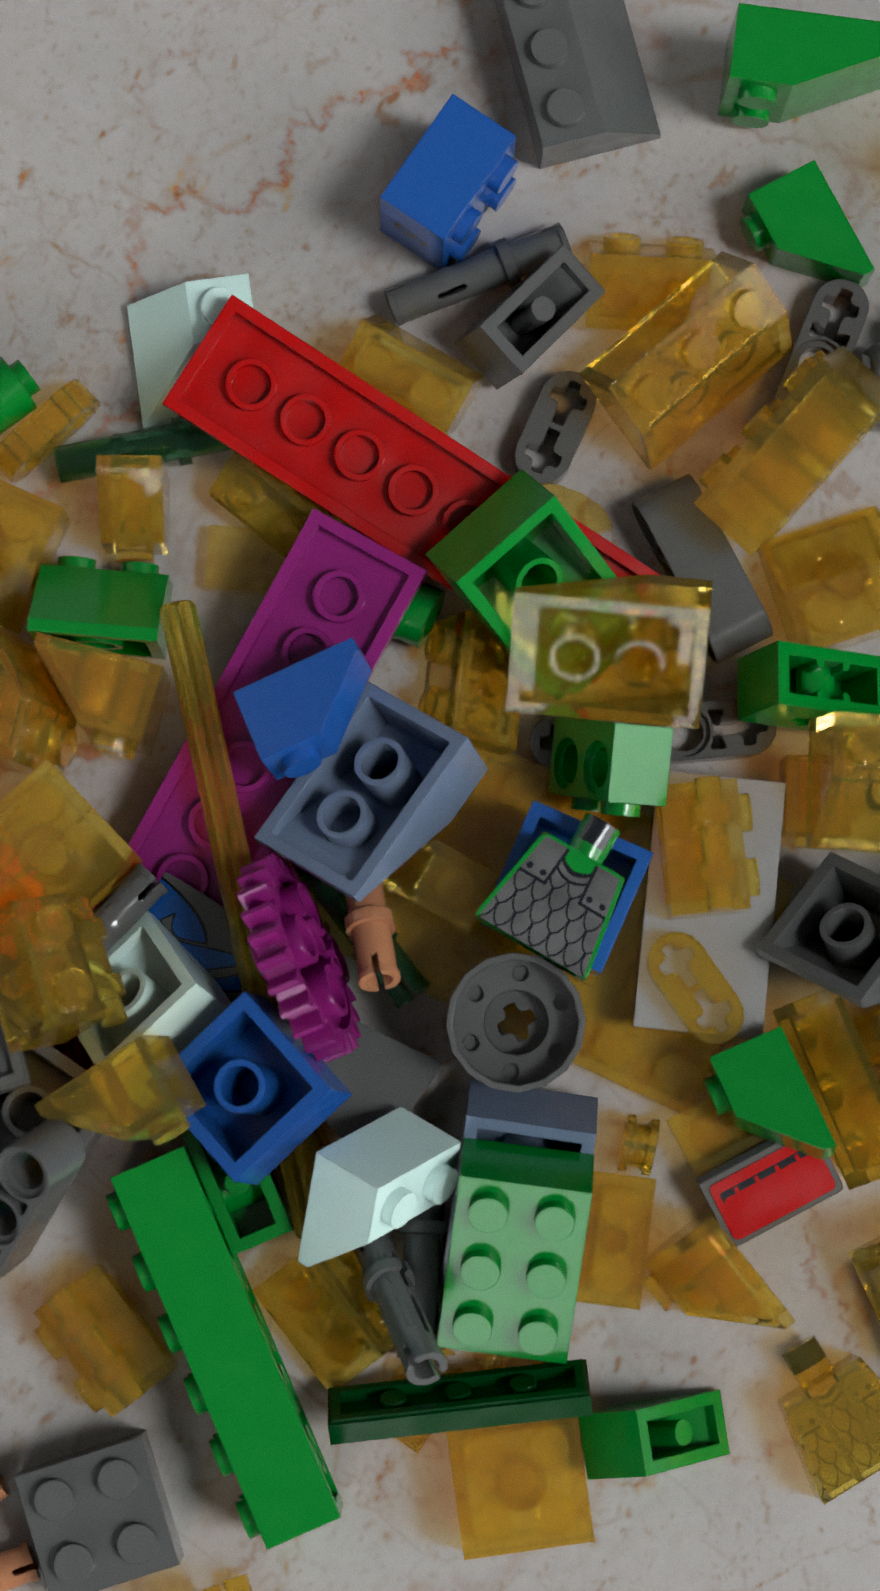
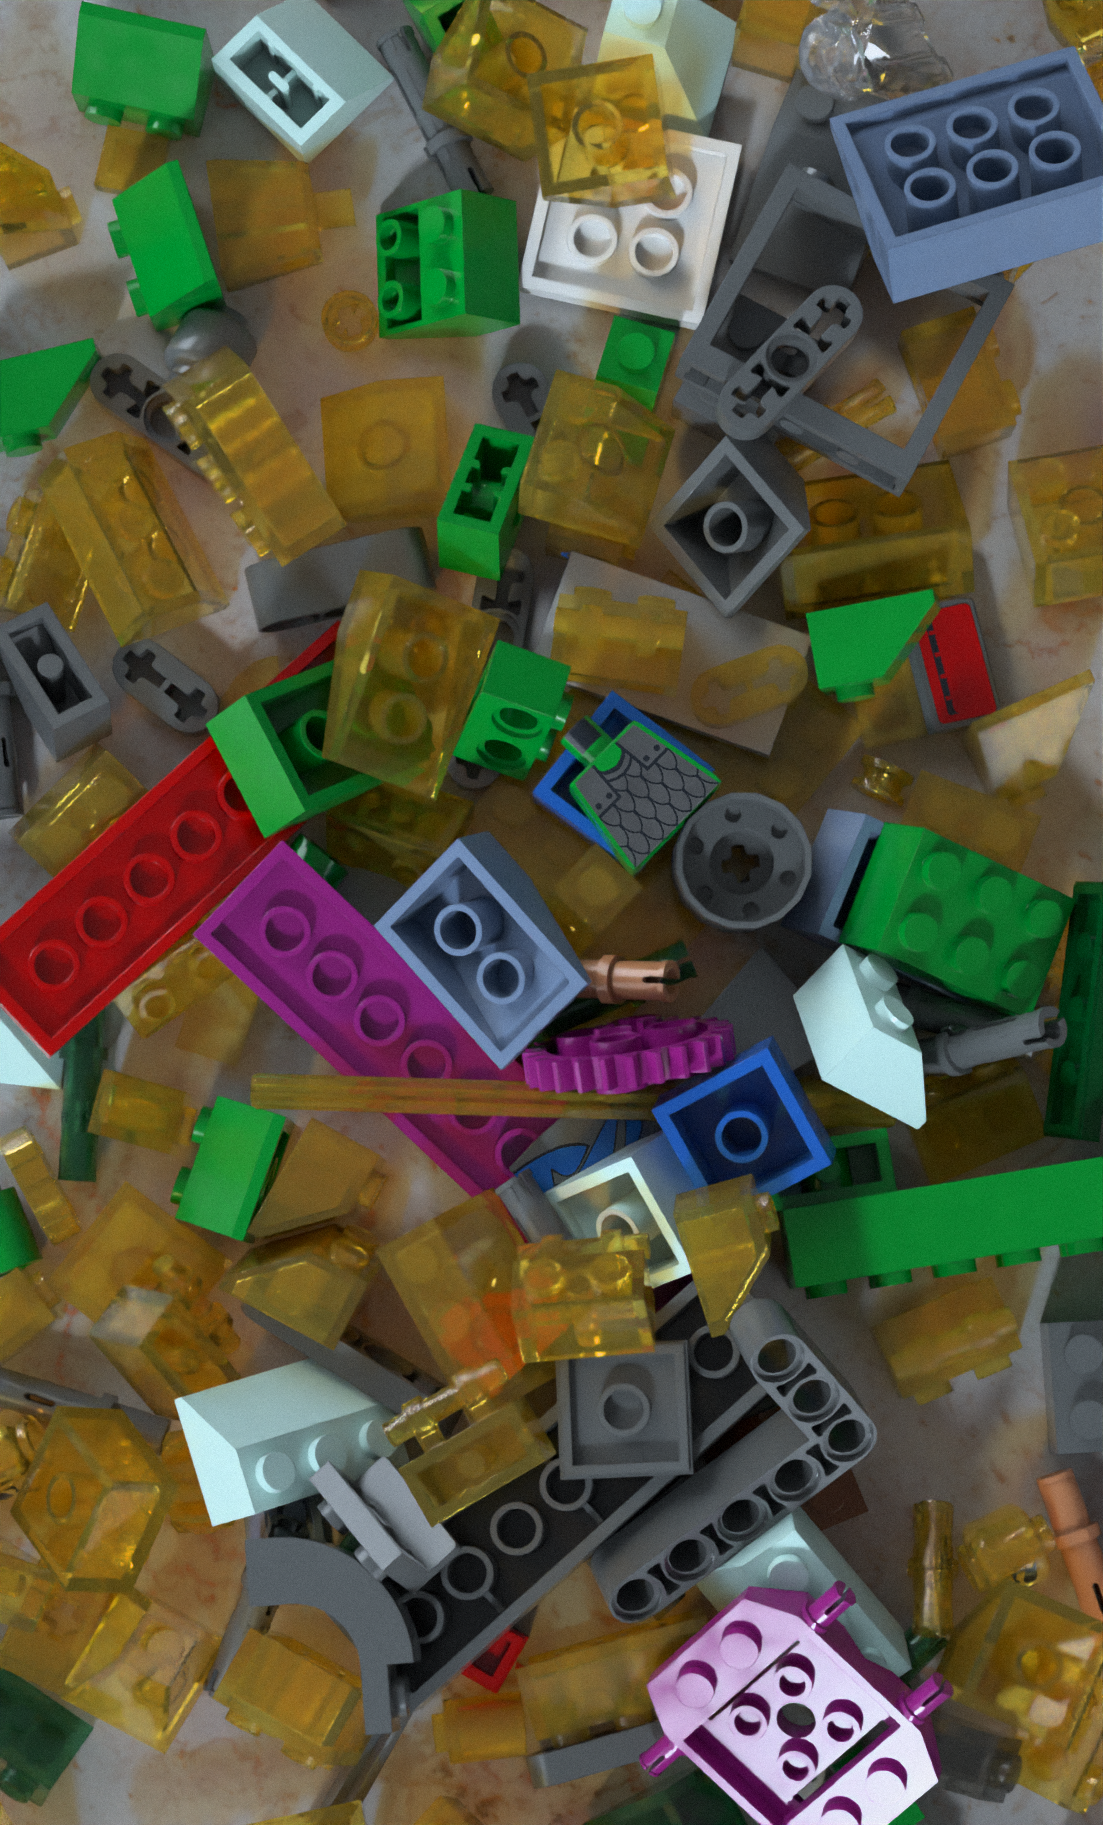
camera: 65 degrees left, 0 degrees up
(304, 708) = (389, 989): blue slope -> none

